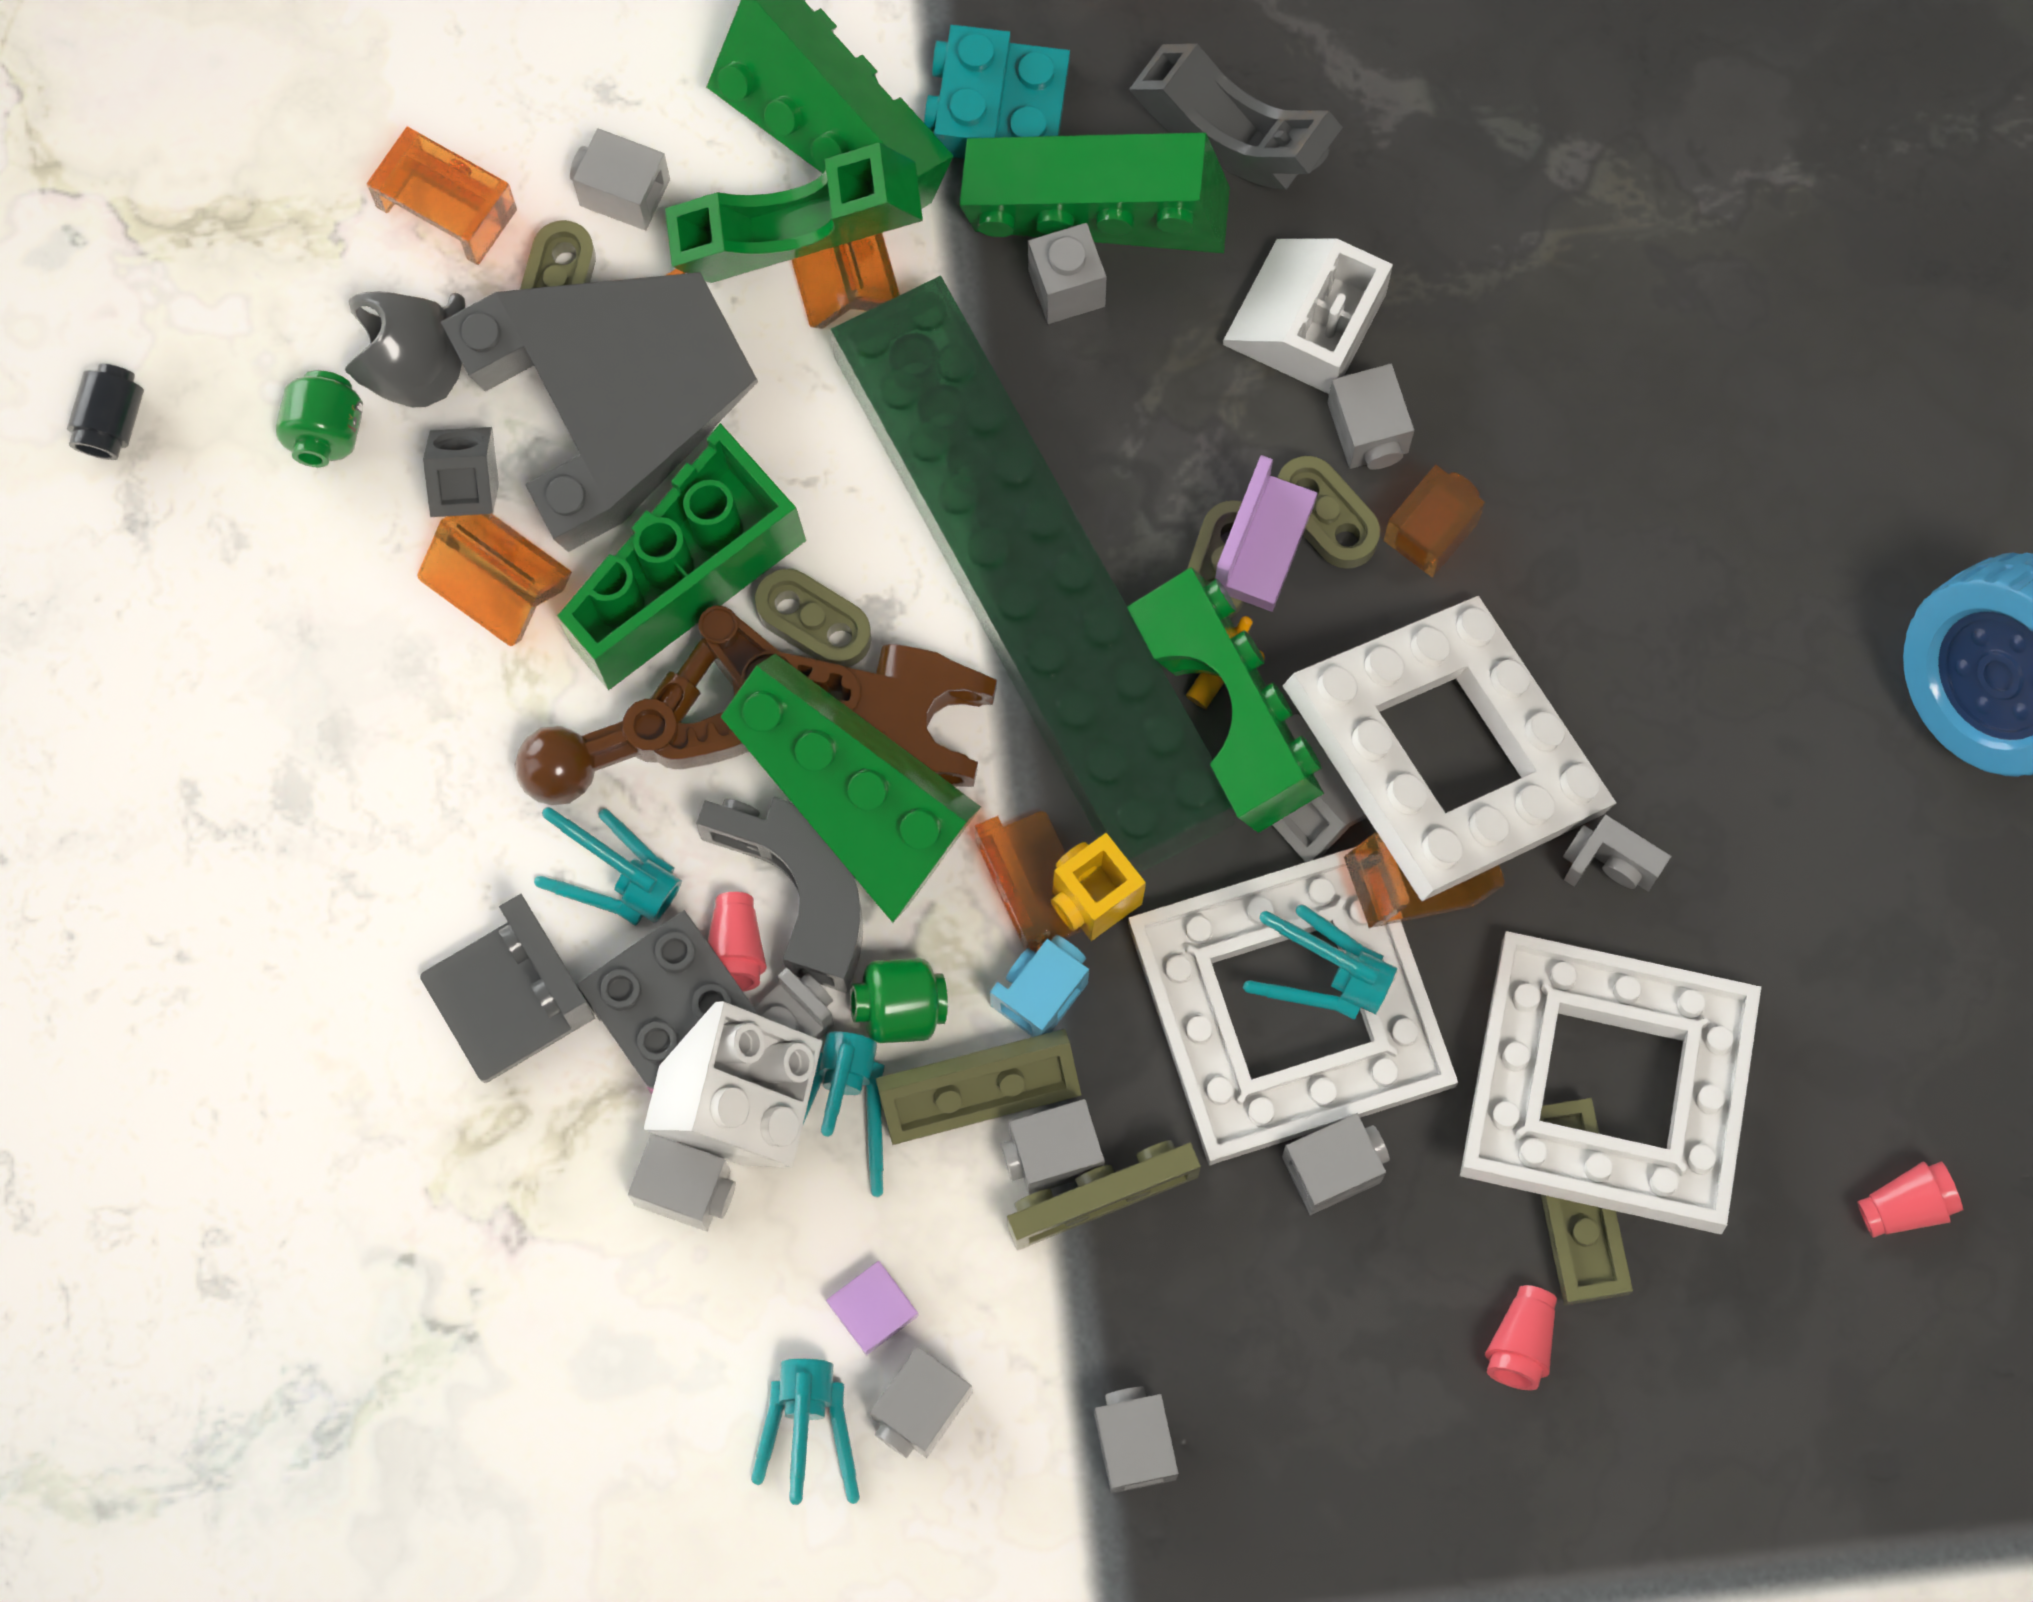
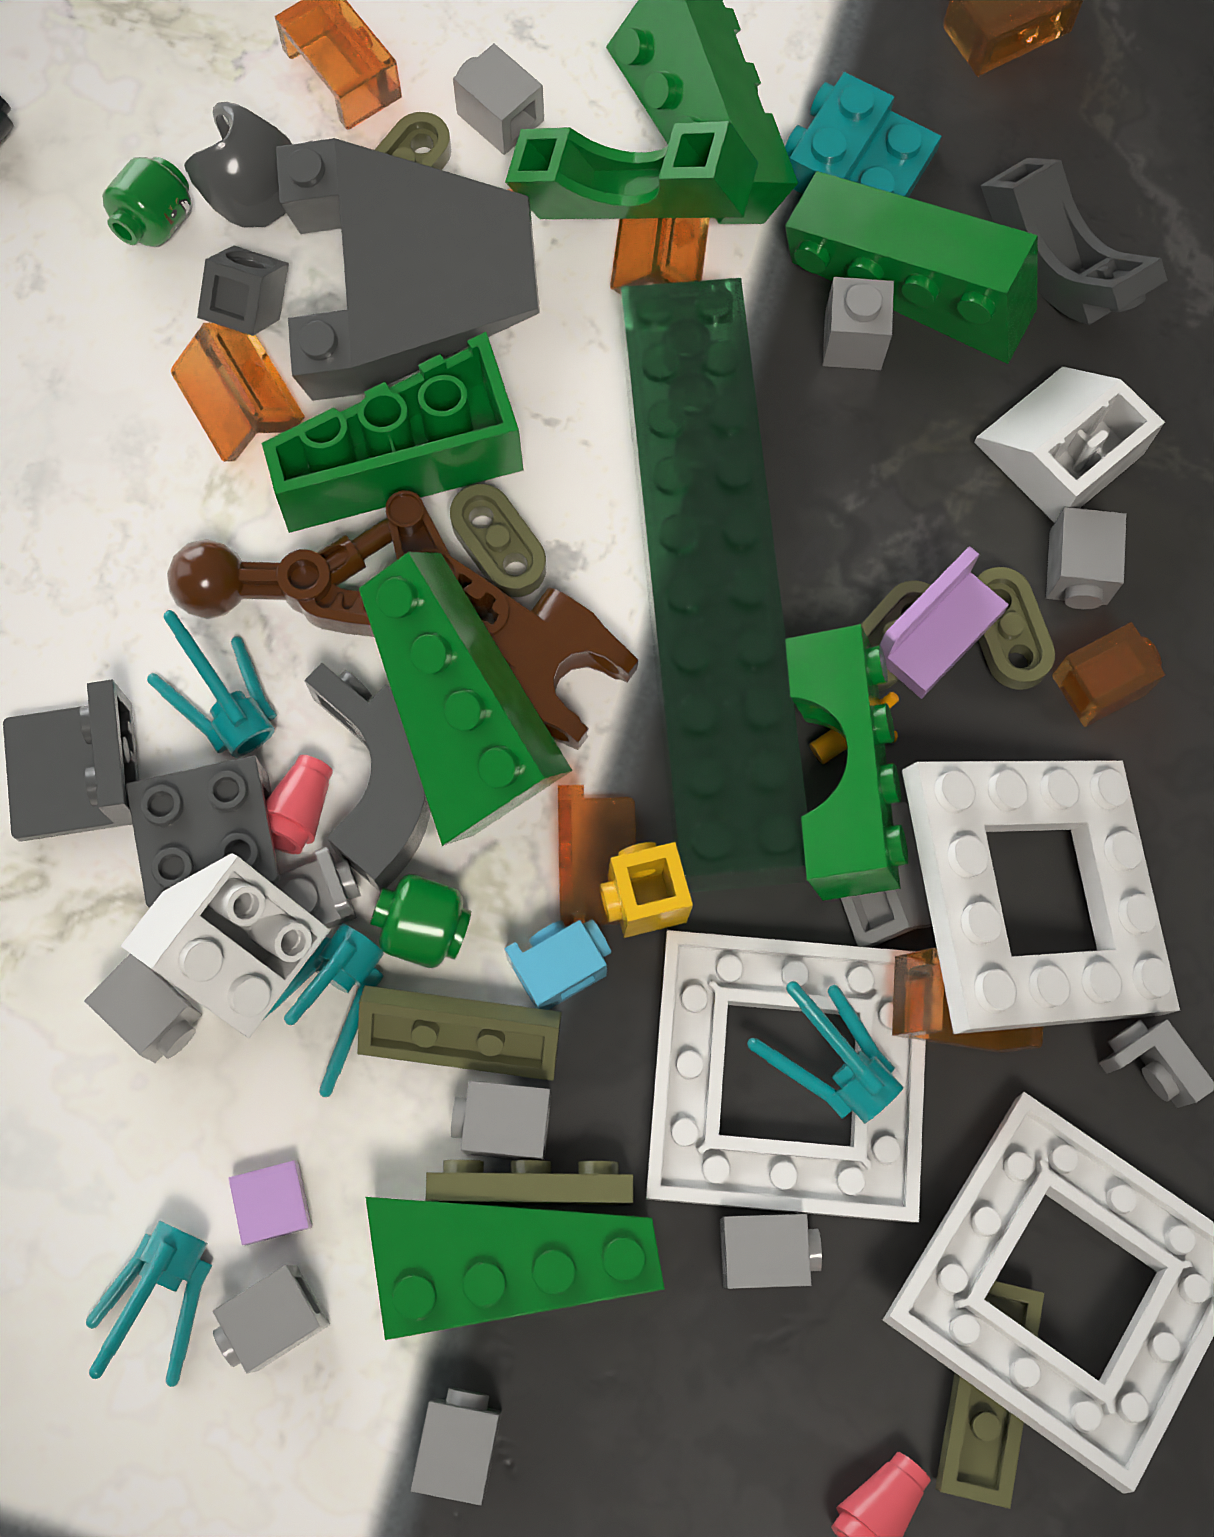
camera: 20 degrees right, 0 degrees up
(1099, 1271) = (490, 1263): none -> green wedge

